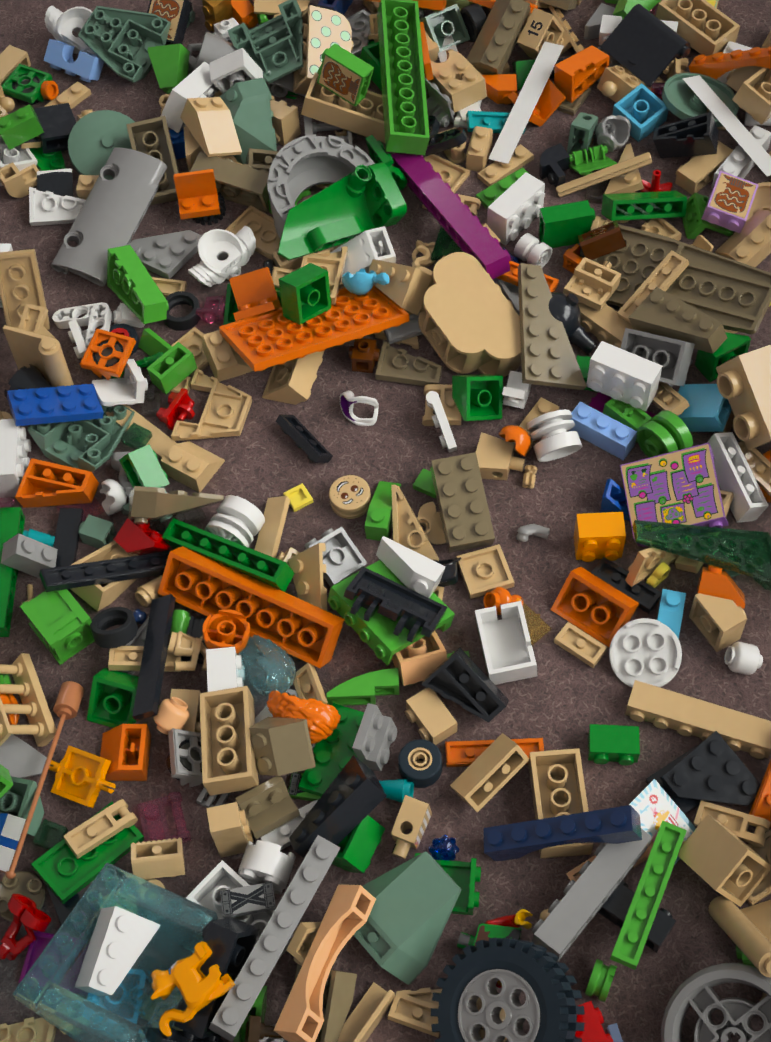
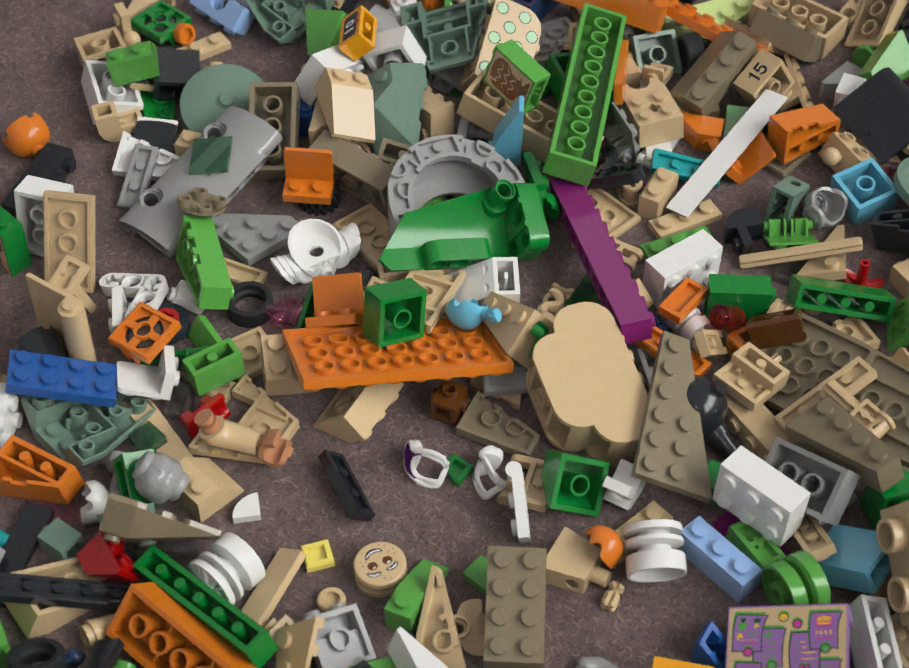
camera: 10 degrees right, 10 degrees down
(54, 223) = (138, 175): none -> light grey tile
(113, 194) = (210, 155): none -> clear green piece
(119, 235) = (202, 203): none -> dark tan dish
(162, 465) = (159, 477): none -> light grey hair
(201, 420) = (240, 438): none -> piece
(203, 62) = (357, 33): none -> light orange brick
(233, 474) = (247, 509): none -> white tile
(318, 527) = (330, 597): none -> tan tile
(351, 122) = (508, 133): none -> medium azure slope
(386, 406) = (459, 469): none -> green tile
(409, 393) = (489, 460): none -> white piece
(422, 284) = (538, 331): none -> green hand
(451, 42) = (659, 71): none -> tan bracket
(524, 234) = (682, 300): none -> orange tile
(552, 265) = (709, 344): none -> tan plate
(561, 240) = (726, 317): none -> clear red brick
(687, 293) = (865, 412): none -> tan connector

